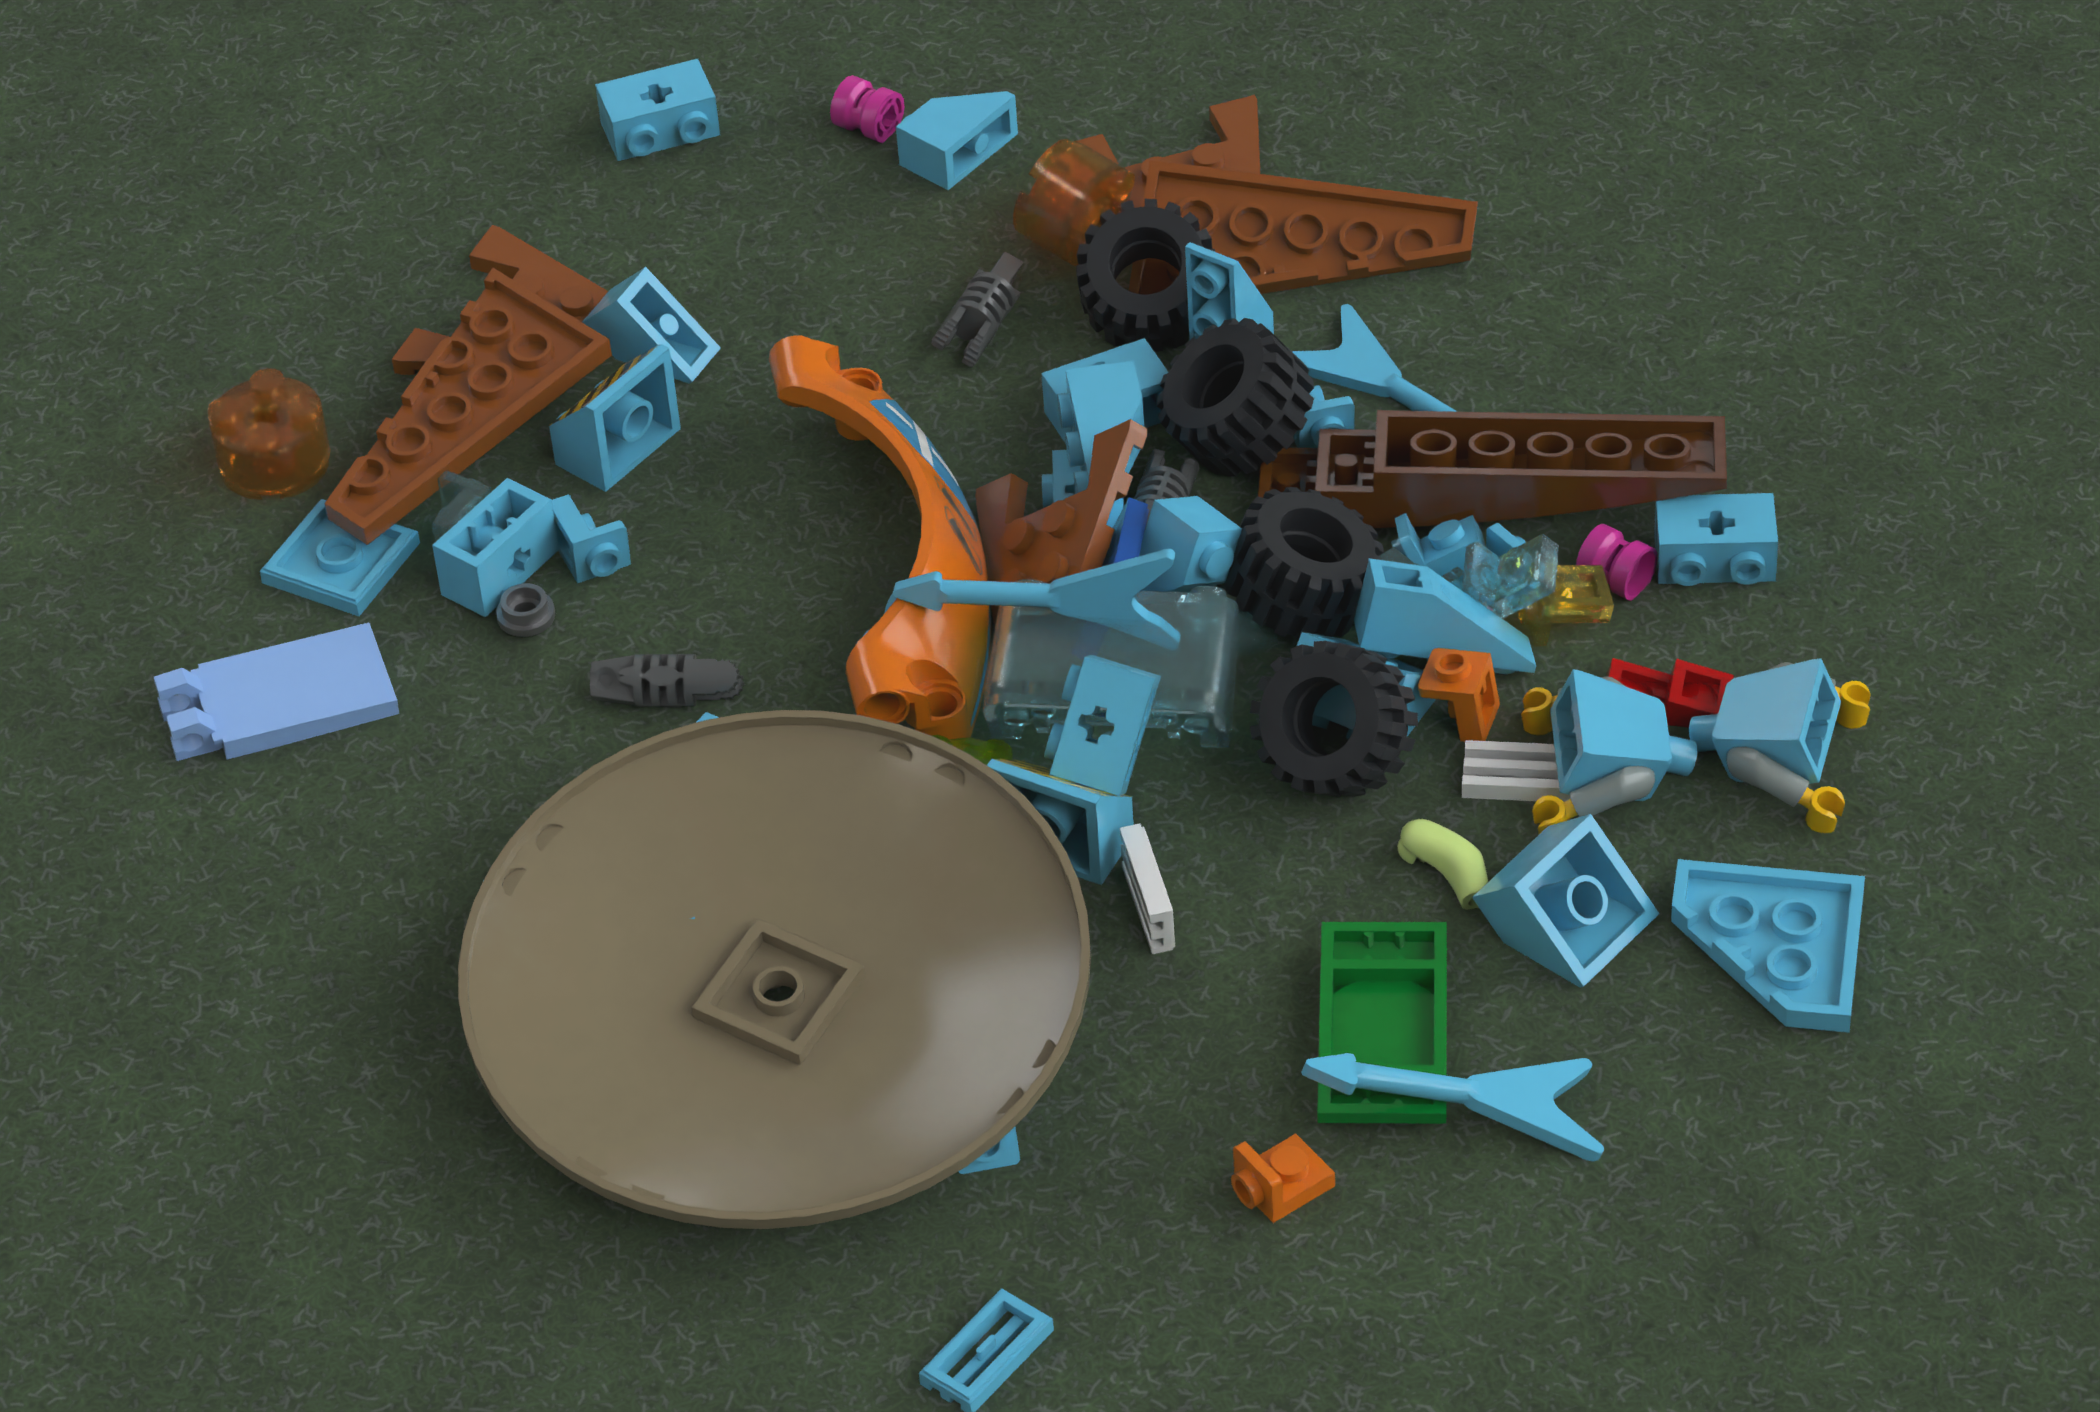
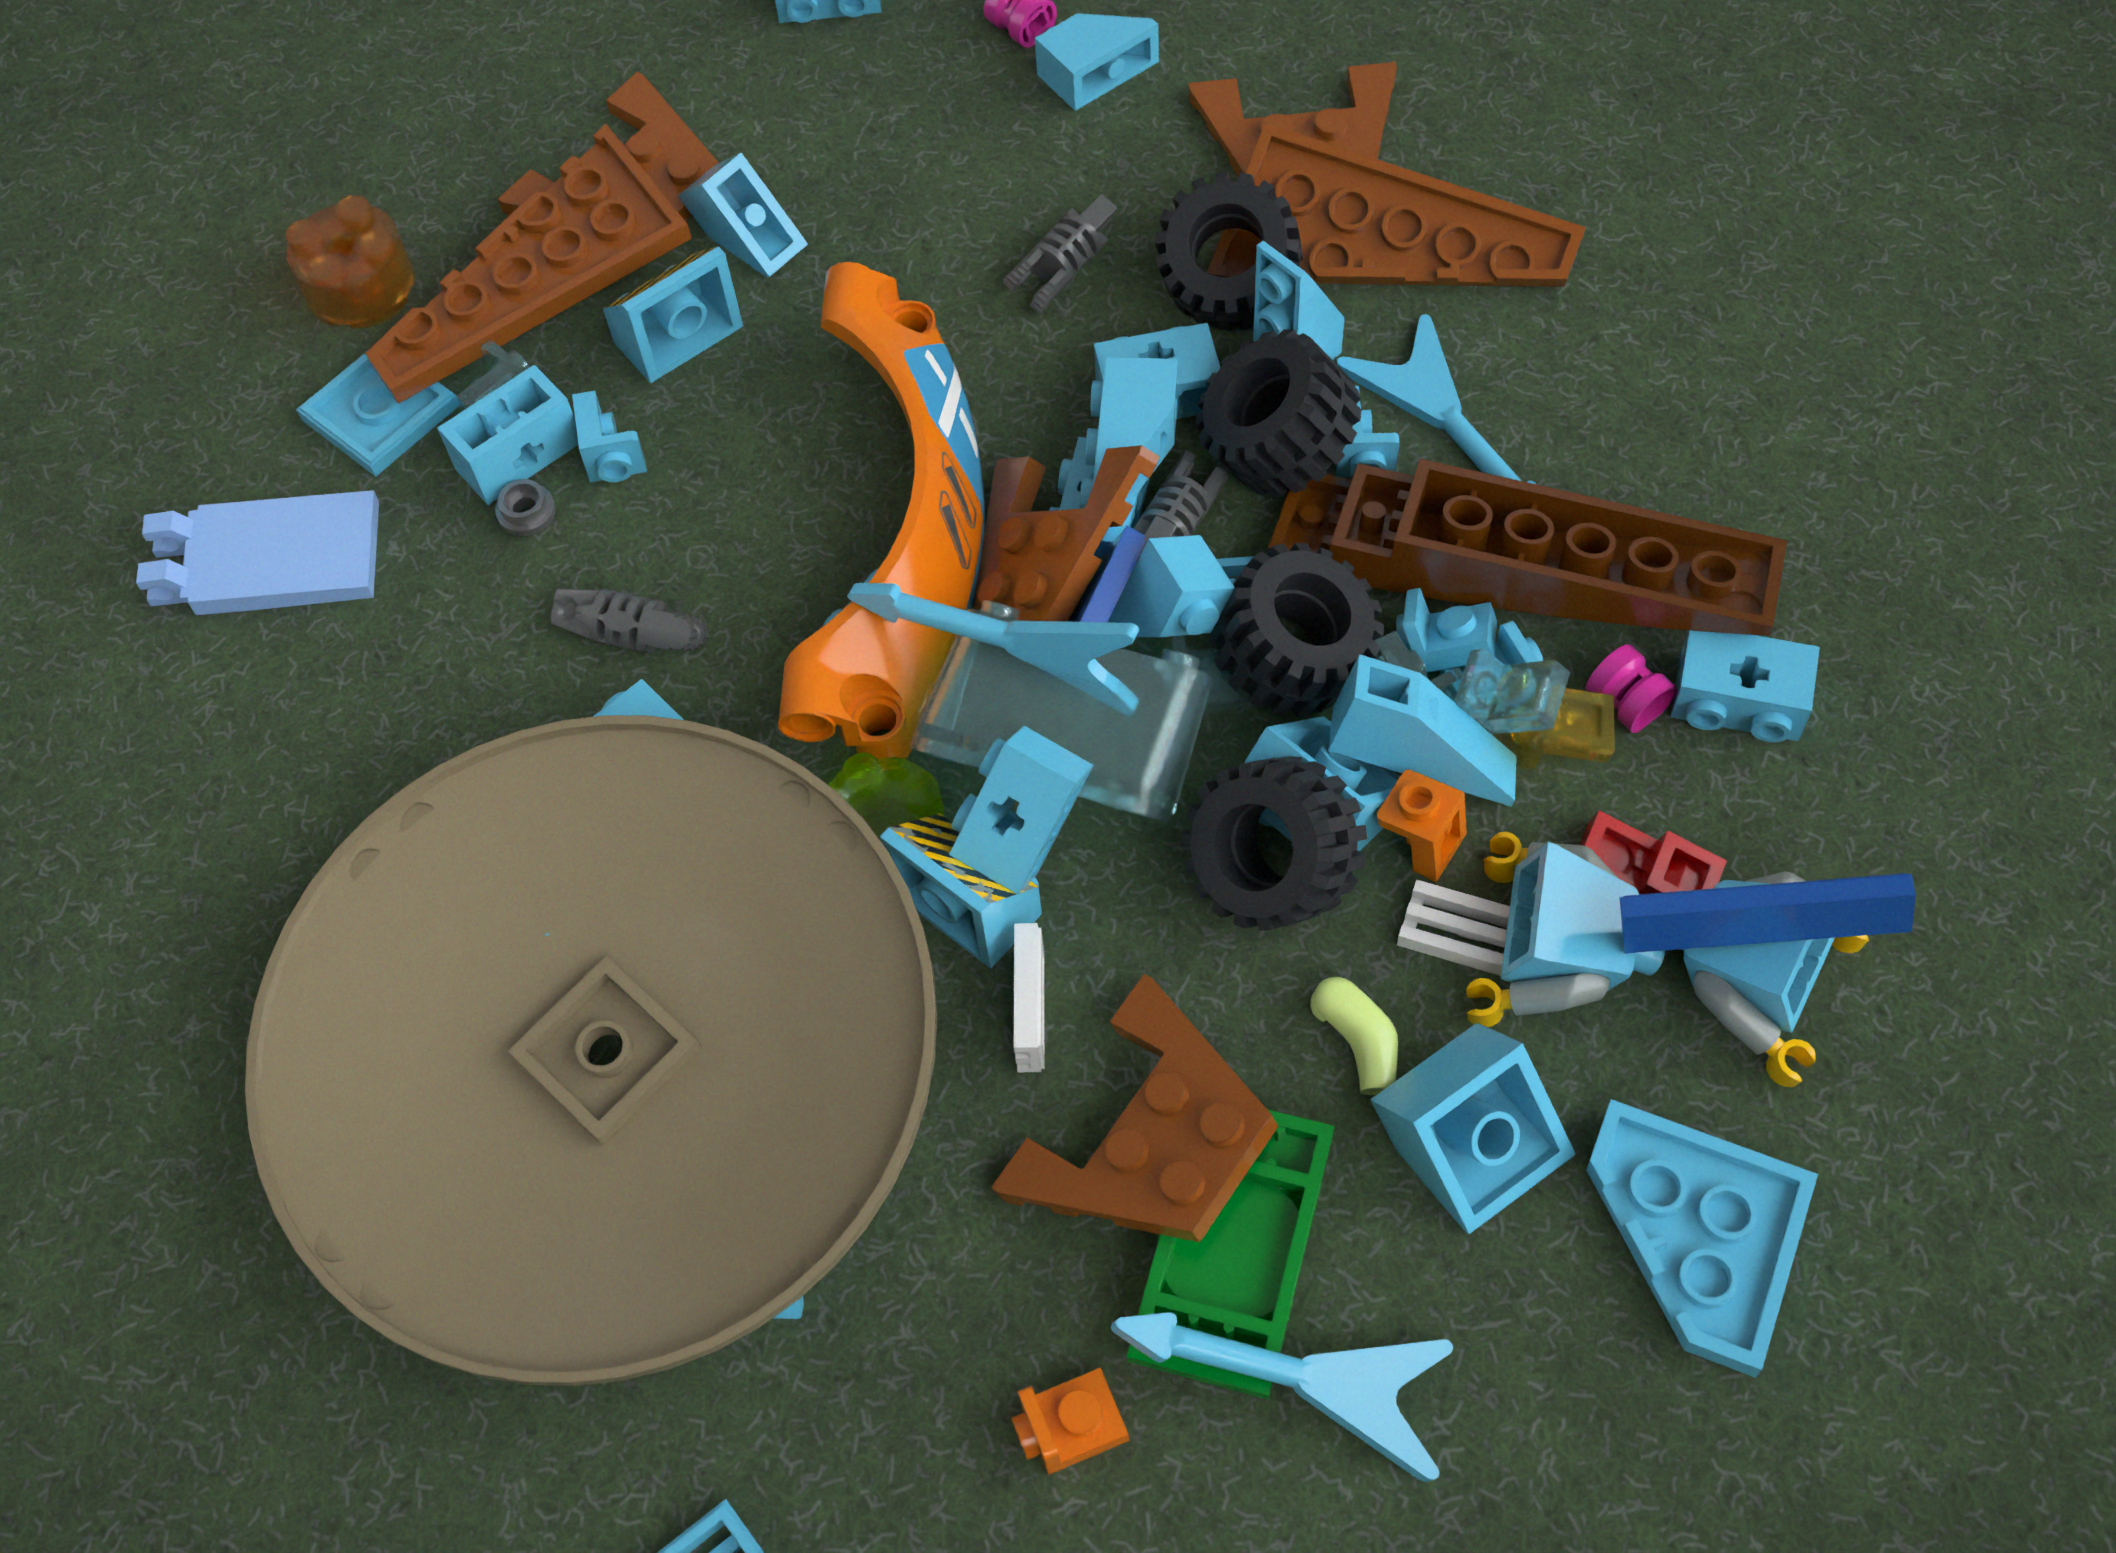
camera: 15 degrees right, 15 degrees up
(1069, 196) = (1180, 143): clear orange brick -> none
(1309, 964) = (1173, 1147): none -> dark orange wing
(1769, 678) = (1768, 913): none -> blue tile

